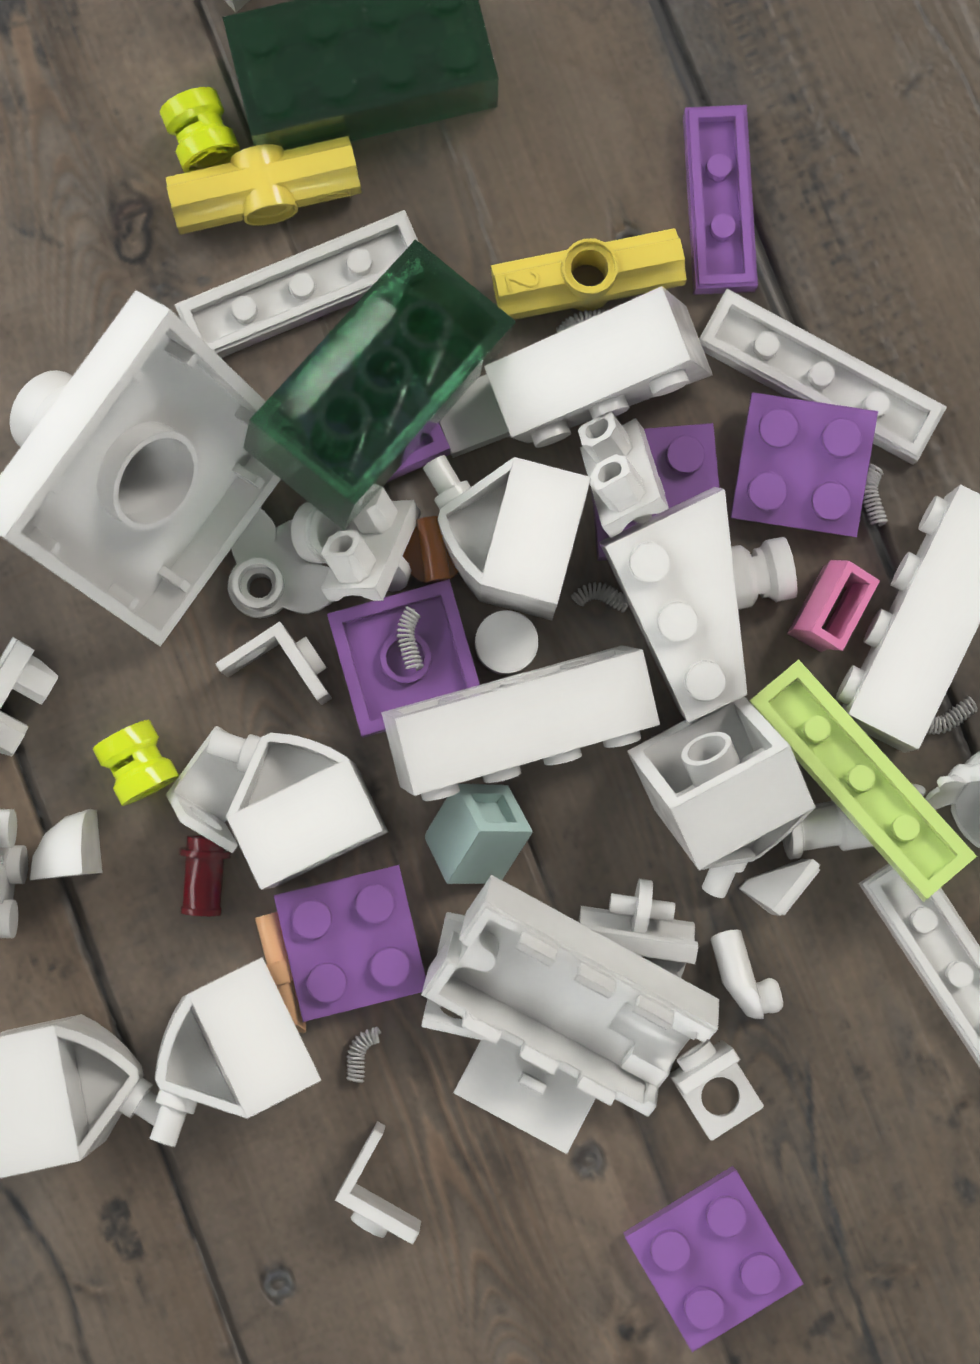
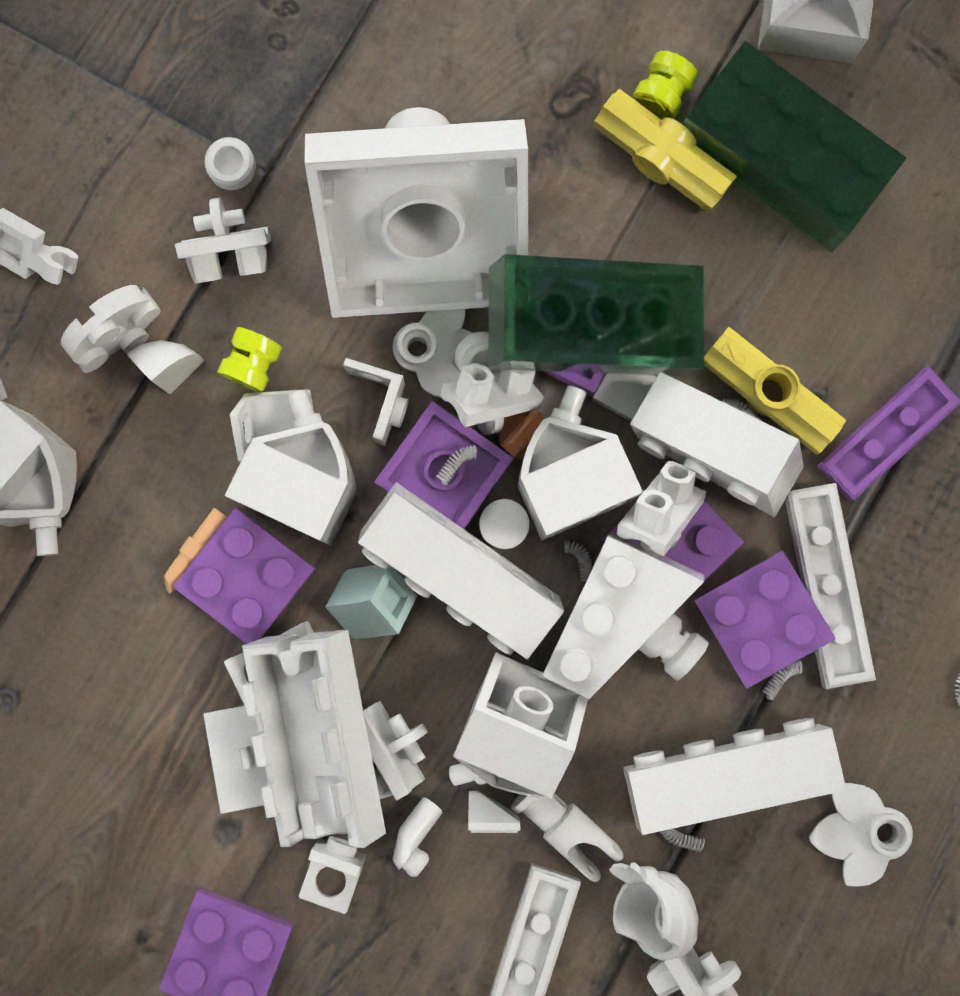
camera: 55 degrees right, 0 degrees up
(203, 876) = (211, 456): dark red pin -> none
(229, 1051) = (113, 556): white piece -> none
(296, 287) = (615, 220): white tile -> none
(354, 1056) = (181, 638): white leg -> none
(370, 1210) = (91, 719): white bracket -> none
(822, 597) = (689, 698): bright pink piece -> none
(863, 781) = (593, 815): yellowish green plate -> none

